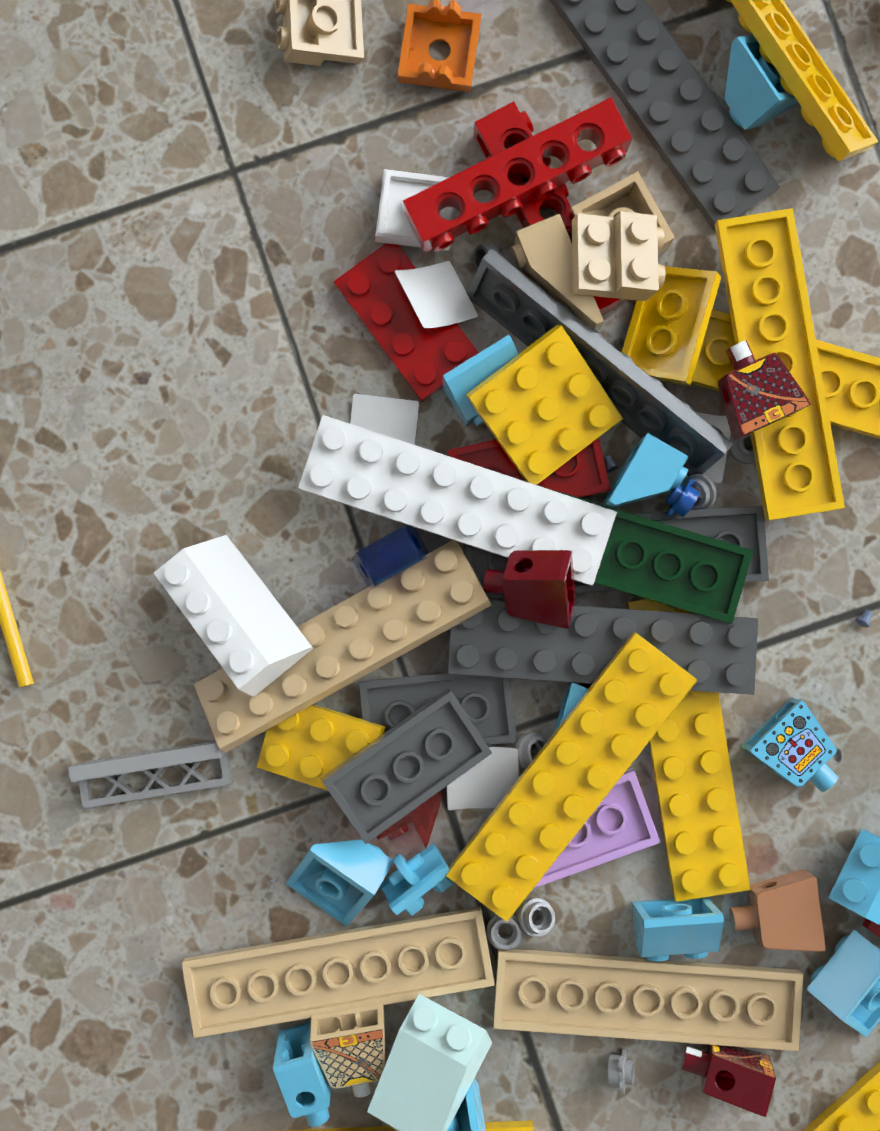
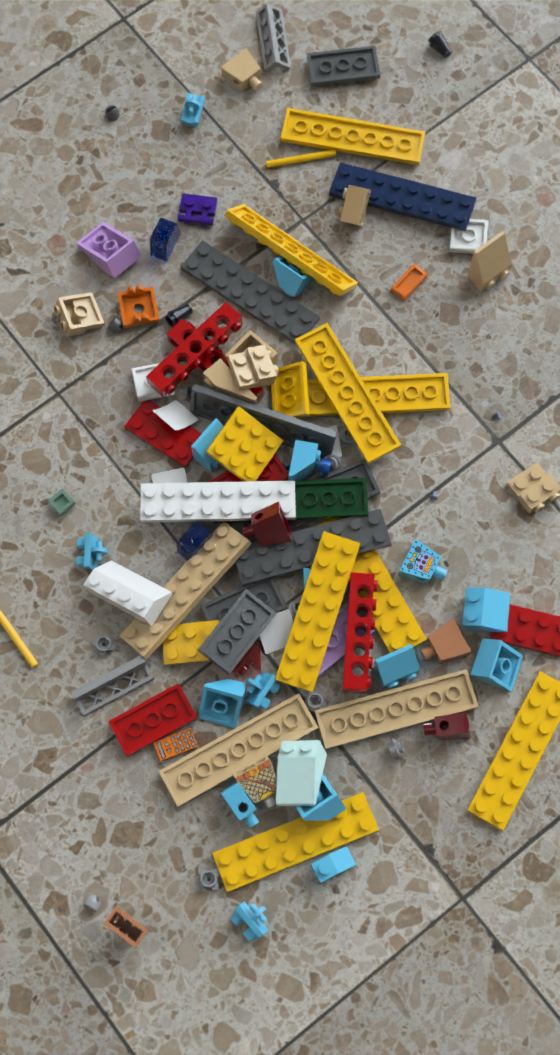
camera: 25 degrees left, 15 degrees down
(153, 697) = (103, 639): none -> light grey plate
(169, 391) = (61, 502): none -> sand green plate
(194, 508) = (92, 551): none -> medium azure hips
(203, 863) = (152, 720): none -> red plate
(229, 919) = (175, 744): none -> orange tile
(383, 70) = (115, 325): none -> dark grey hinge
(506, 89) = (177, 314): none -> black cone
(545, 917) = (330, 685): light grey plate -> none
(606, 939) = (358, 583): none -> red brick
(758, 391) = (340, 406): torso -> none

